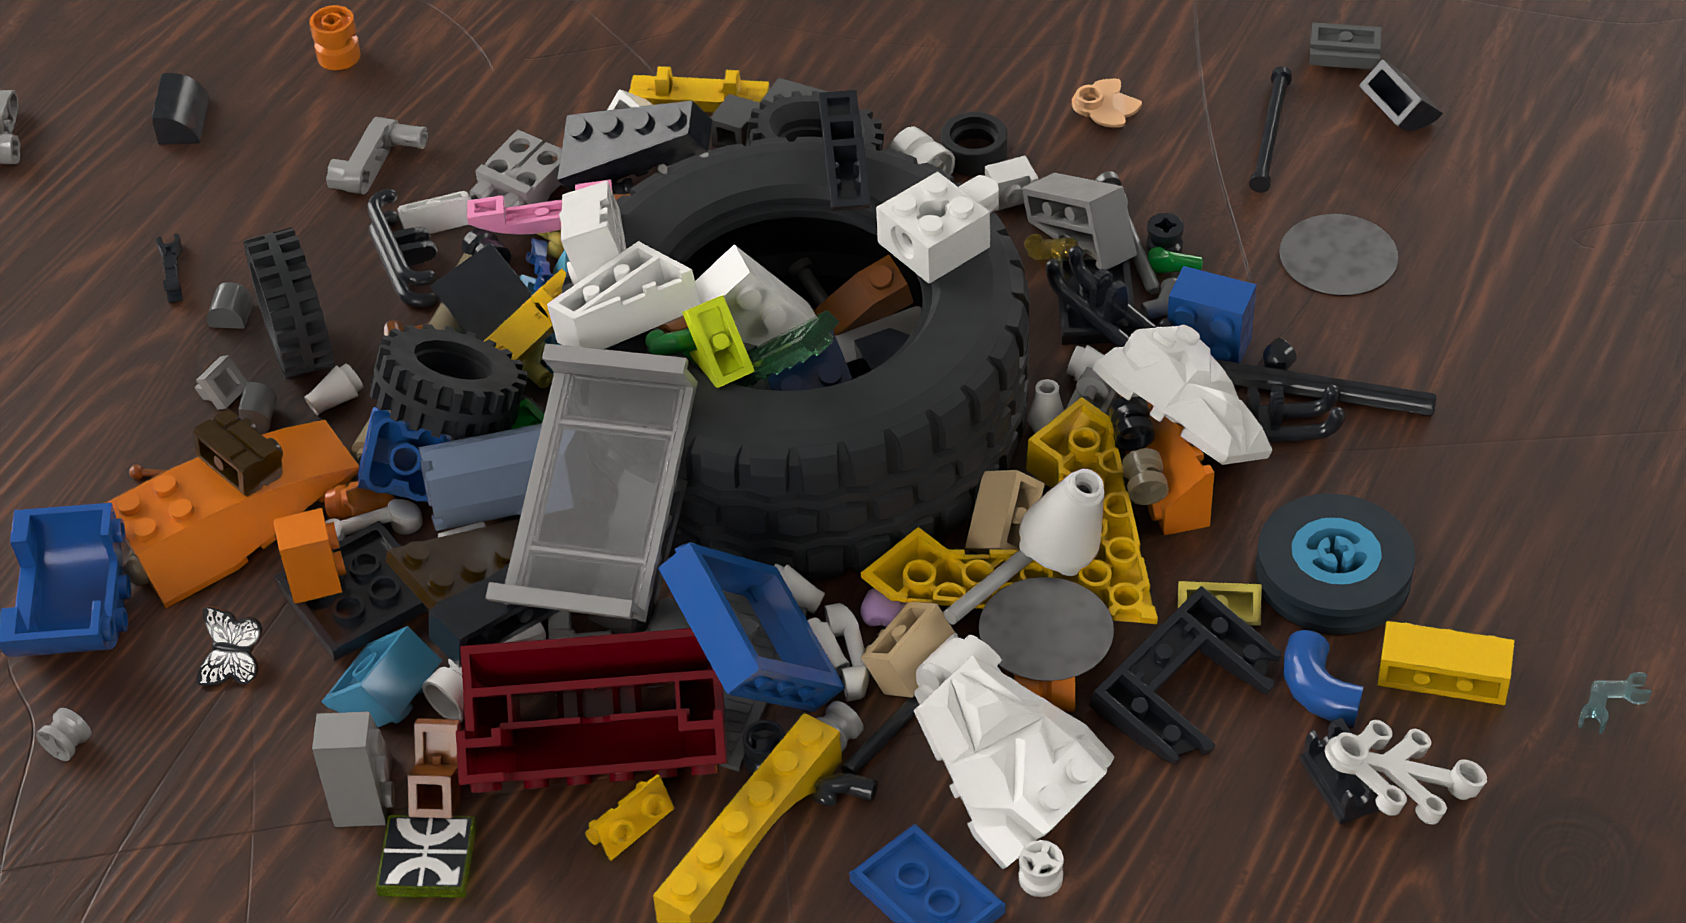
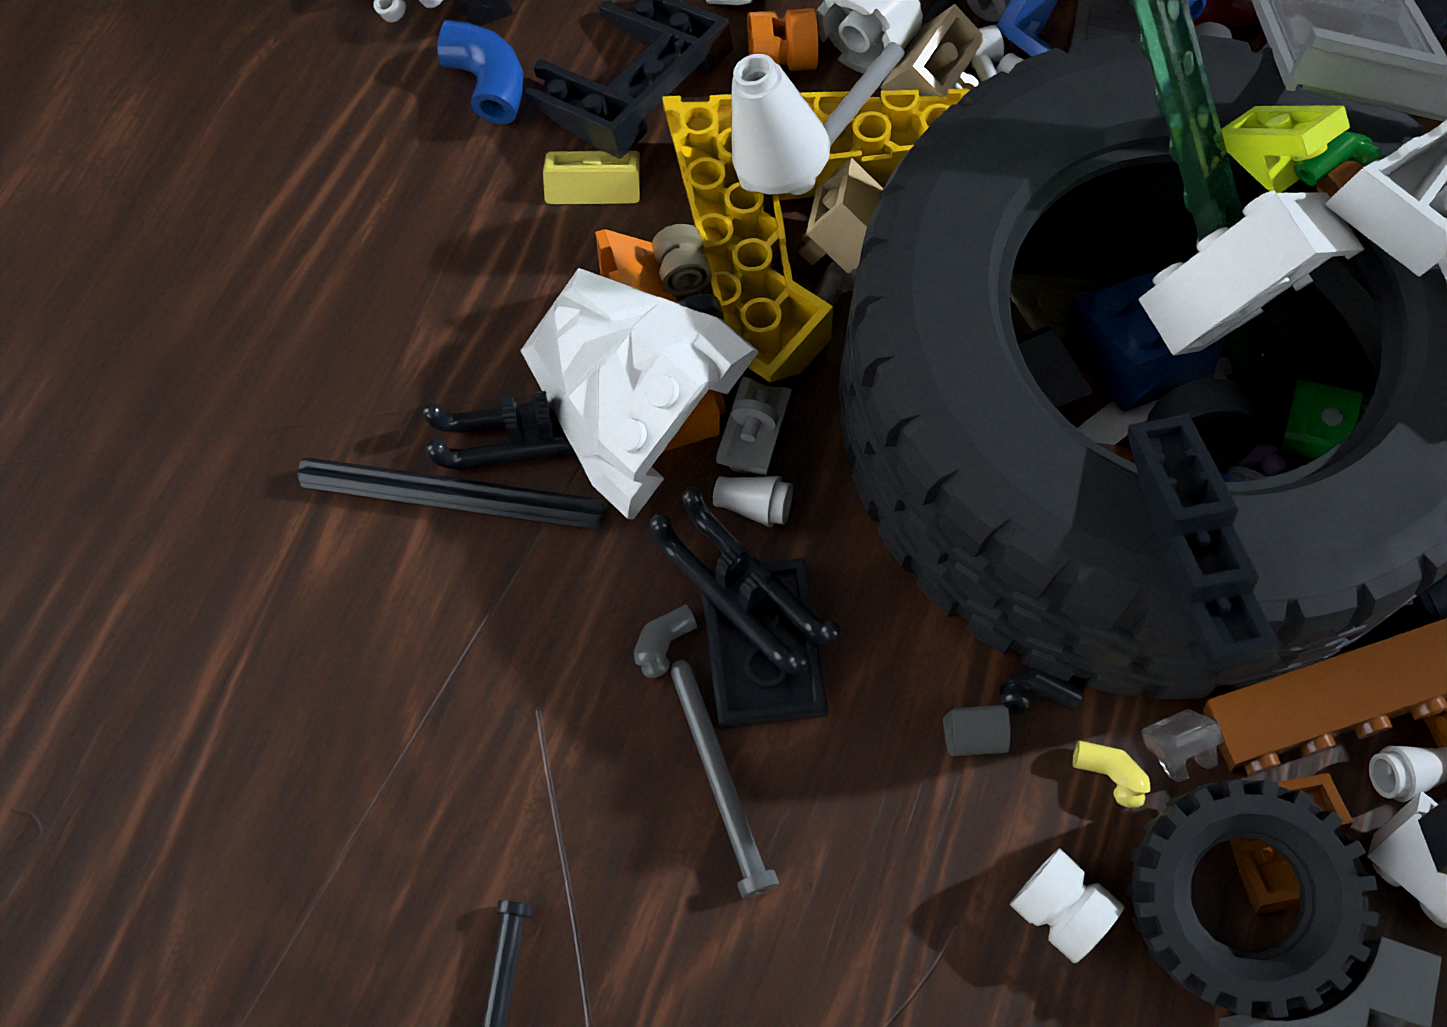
camera: 170 degrees right, 20 degrees up
(938, 224) = (1014, 368): white brick -> none
(975, 125) = (1030, 959): black tyre -> none
(1011, 177) = (914, 859): white brick -> none
(1045, 404) = (813, 413): white cone -> none
(1047, 628) = (804, 41): flat silver sticker -> none
(1048, 248) = (836, 732): clear yellow arm -> none
(1085, 211) = (801, 769): light grey wedge -> none
(1165, 231) = (665, 777): black wheel -> none
(1169, 261) = (651, 708): green arm -> none
(1215, 308) = (596, 555): blue brick -> none
(1279, 354) = (504, 535): black hinge -> none
(1338, 254) = (402, 770): flat silver sticker -> none
(1367, 549) = (412, 225): black wheel -> none
(1446, 662) = (344, 97): yellow brick -> none
(1602, 690) = (179, 92): clear light blue arm -> none

